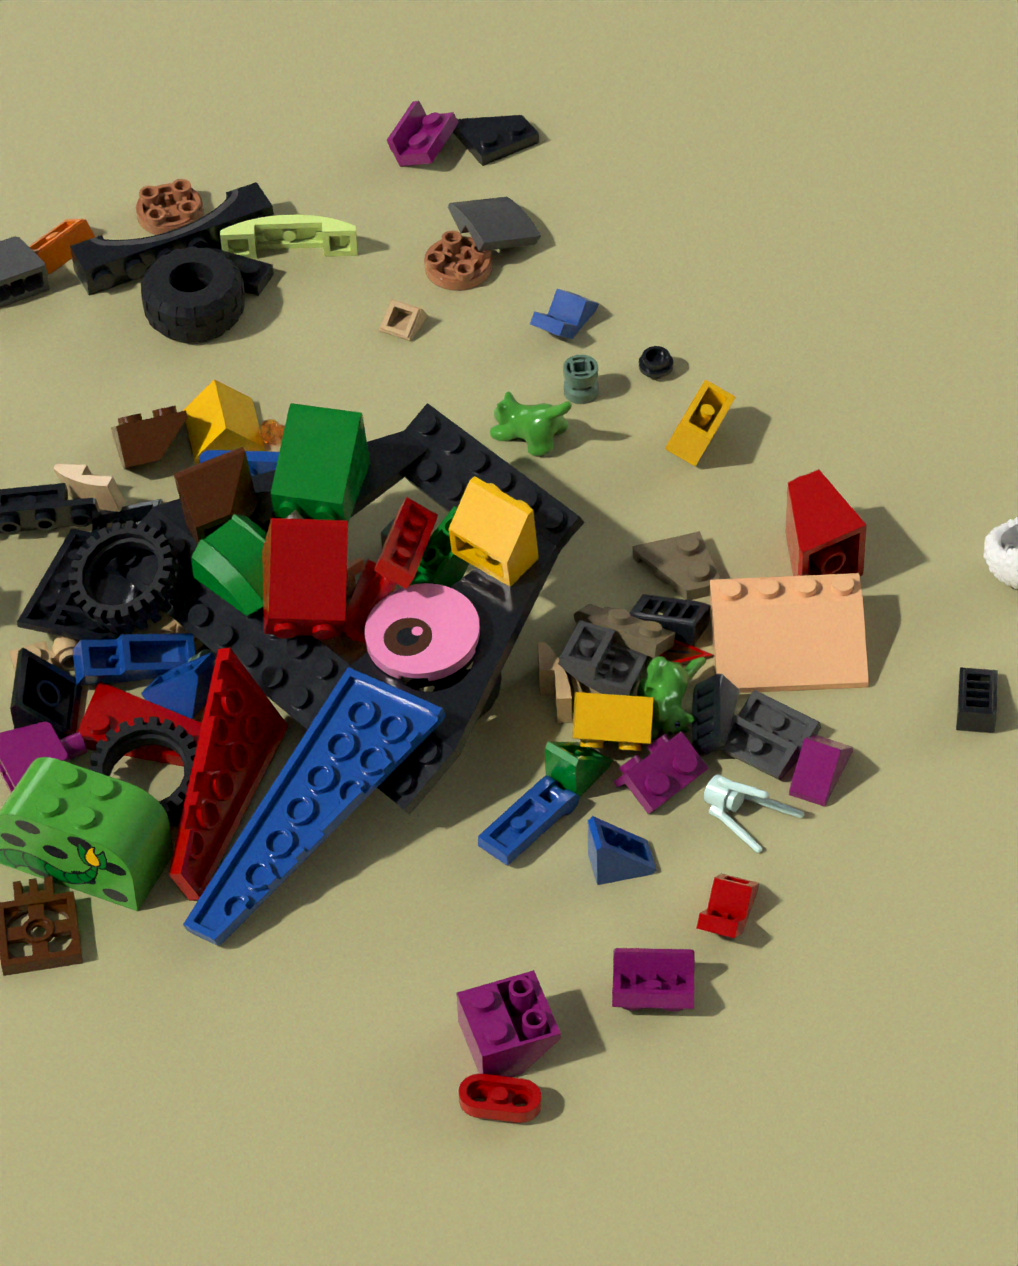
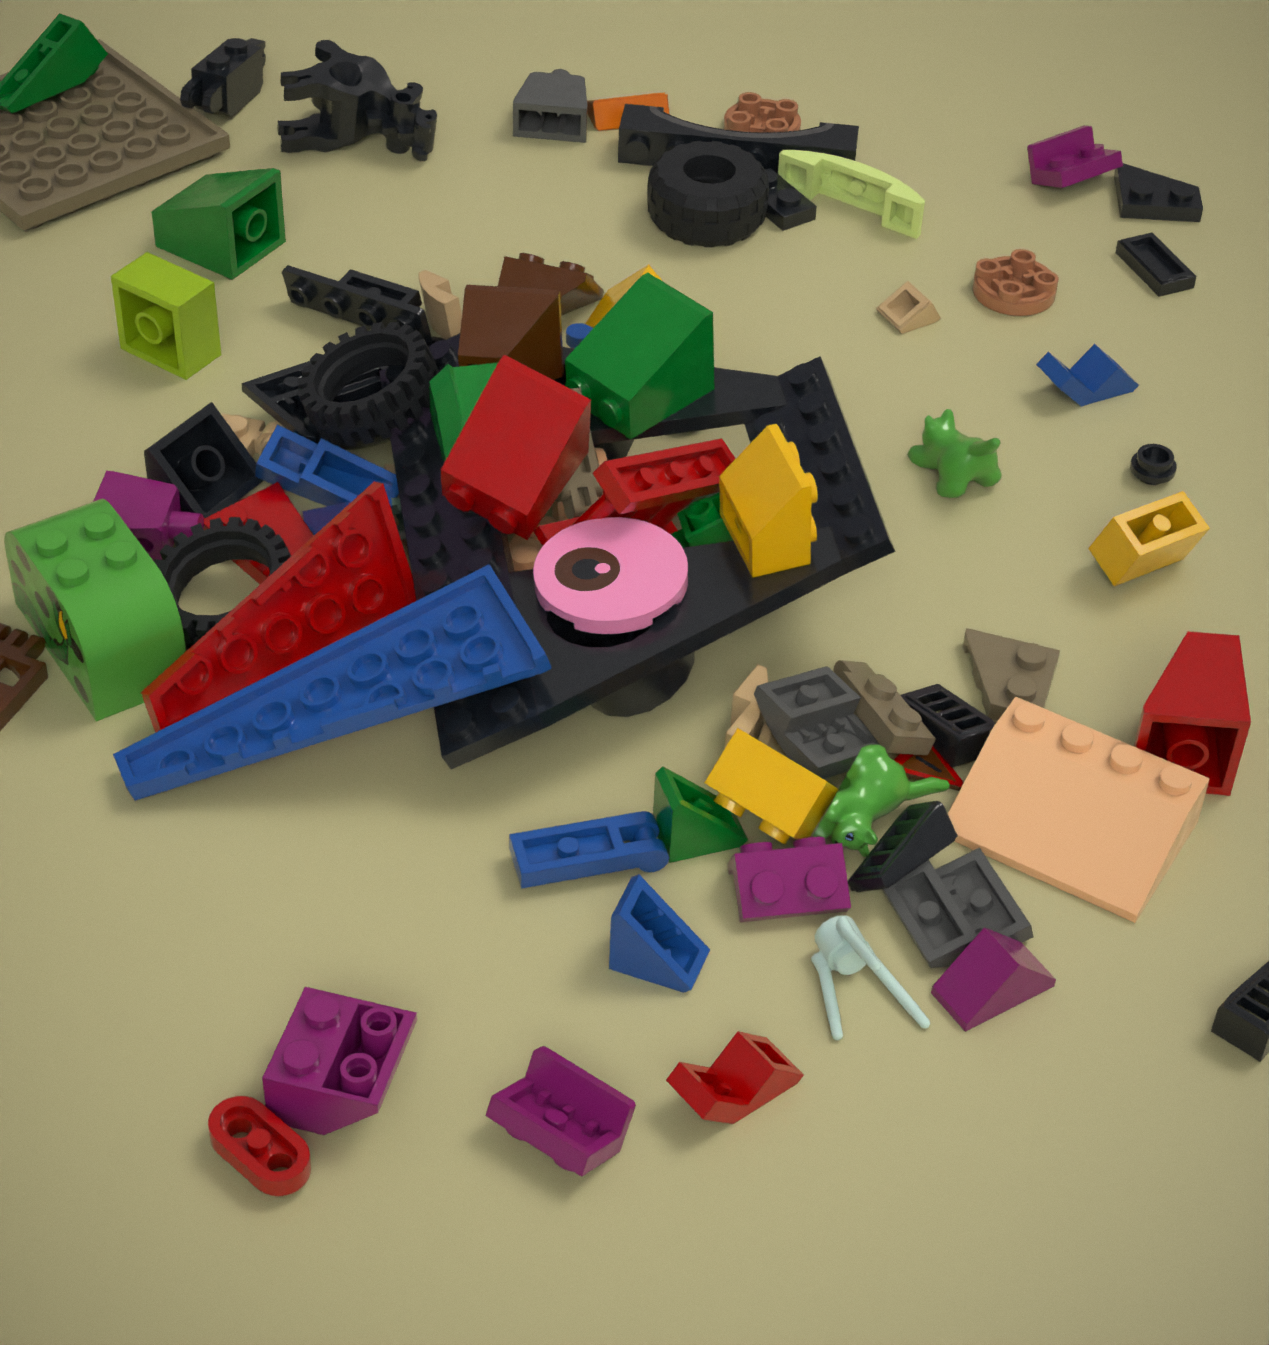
camera: 30 degrees right, 5 degrees down
(494, 223) = (1080, 263): dark grey slope -> none
(538, 196) = (1155, 264): none -> black tile
(580, 379) = (1050, 440): sand green wheel -> none

